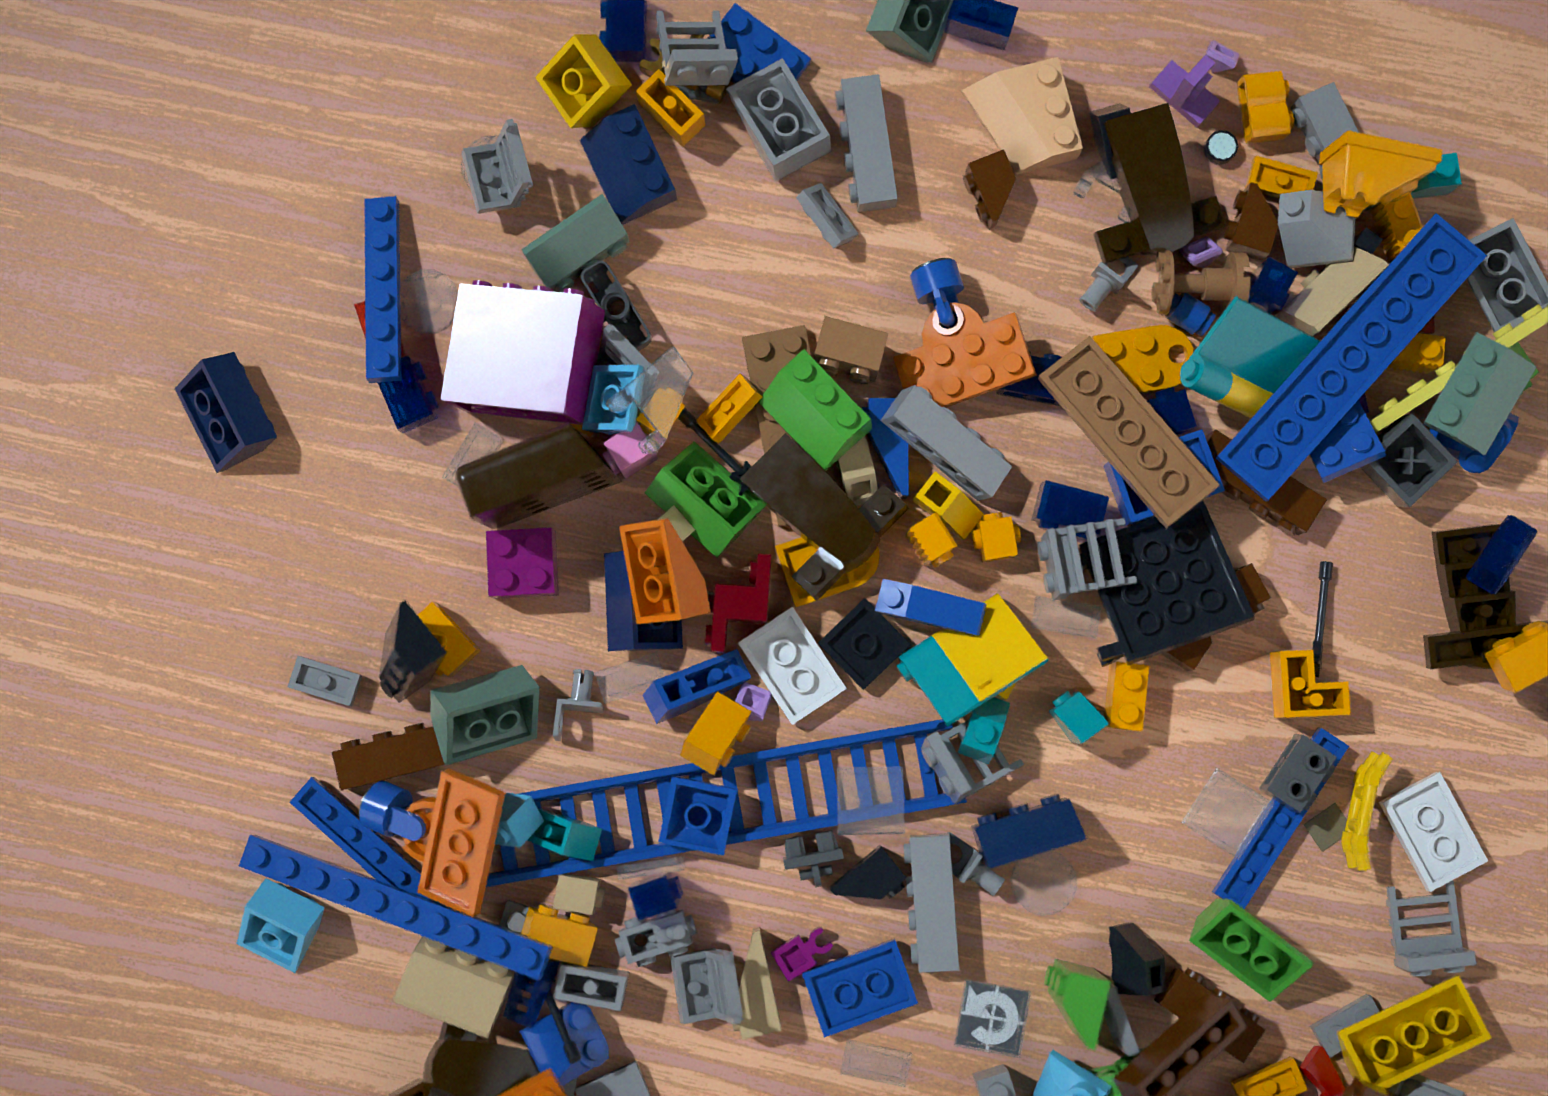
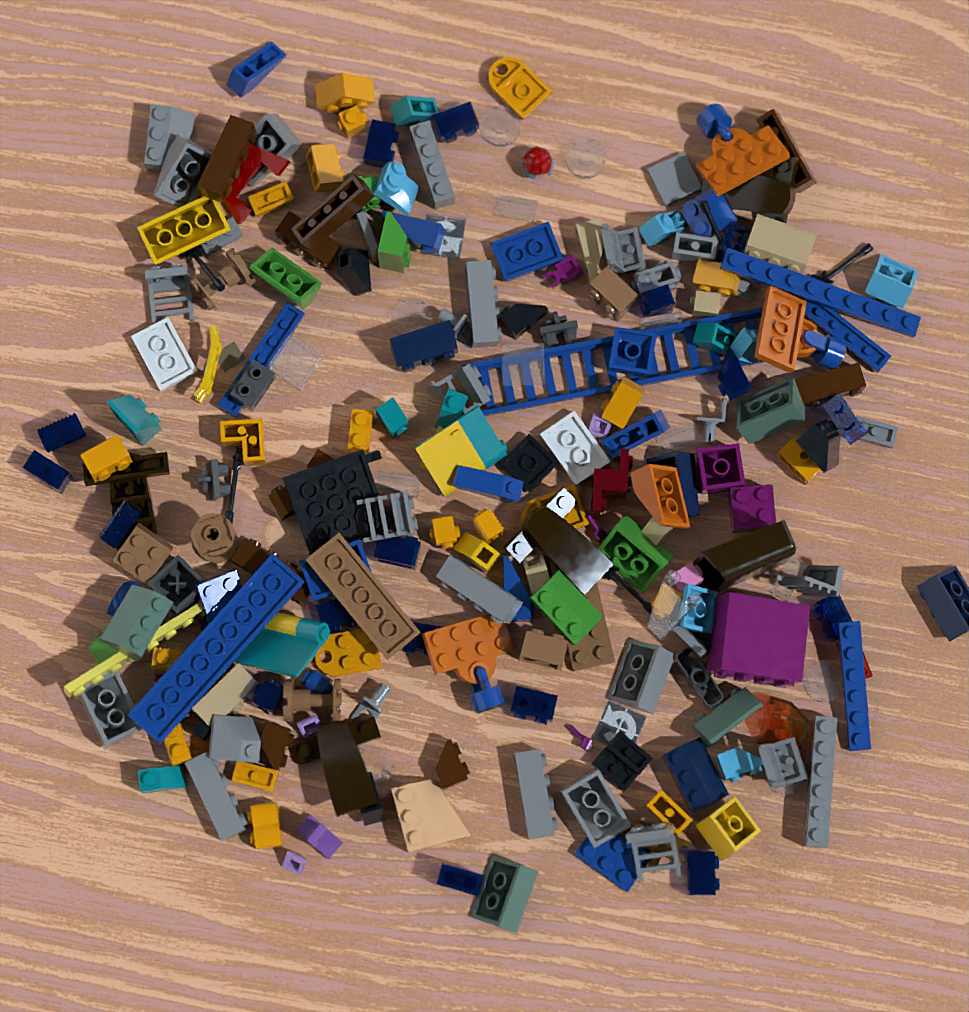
camera: 175 degrees right, 5 degrees down
(369, 699) = (845, 419): none -> clear blue brick
(387, 932) = (826, 278): none -> black piece
(426, 444) = (819, 581): none -> light grey plate
(443, 149) = (820, 782): none -> light grey brick
(494, 237) = (781, 722): none -> clear orange slope
(542, 770) = (732, 377): none -> clear blue slope
(564, 181) = (737, 762): none -> medium azure slope
(568, 625) = (719, 468): none -> magenta brick
(640, 1023) = (662, 227): none -> medium azure slope
(703, 311) = (641, 676): none -> light grey slope
(727, 910) = (612, 294): none -> medium nougat brick
(729, 408) = (621, 612): light orange plate -> none
(737, 188) = (622, 760): none -> black slope
(738, 241) = (617, 718): none -> clear tile
(764, 541) = (596, 528): none -> magenta hand
(788, 221) = (585, 743): none -> magenta hand
(827, 215) = (560, 744): light grey plate -> none
(866, 273) = (533, 705): none -> clear blue brick
(1032, 1021) = (422, 233): none -> blue slope
(1221, 147) = (295, 799): tile -> none
(1339, 955) = (229, 275): none -> medium nougat piece
(1348, 612) = (210, 480): none -> dark grey hips
(1355, 529) = (214, 538): none -> medium nougat piece
(1371, 170) = (202, 767): light orange piece -> none
(1389, 996) = (196, 254): none -> black piece
(1463, 511) = (142, 553): none -> medium nougat brick
(1484, 724) = (135, 418): none -> teal slope

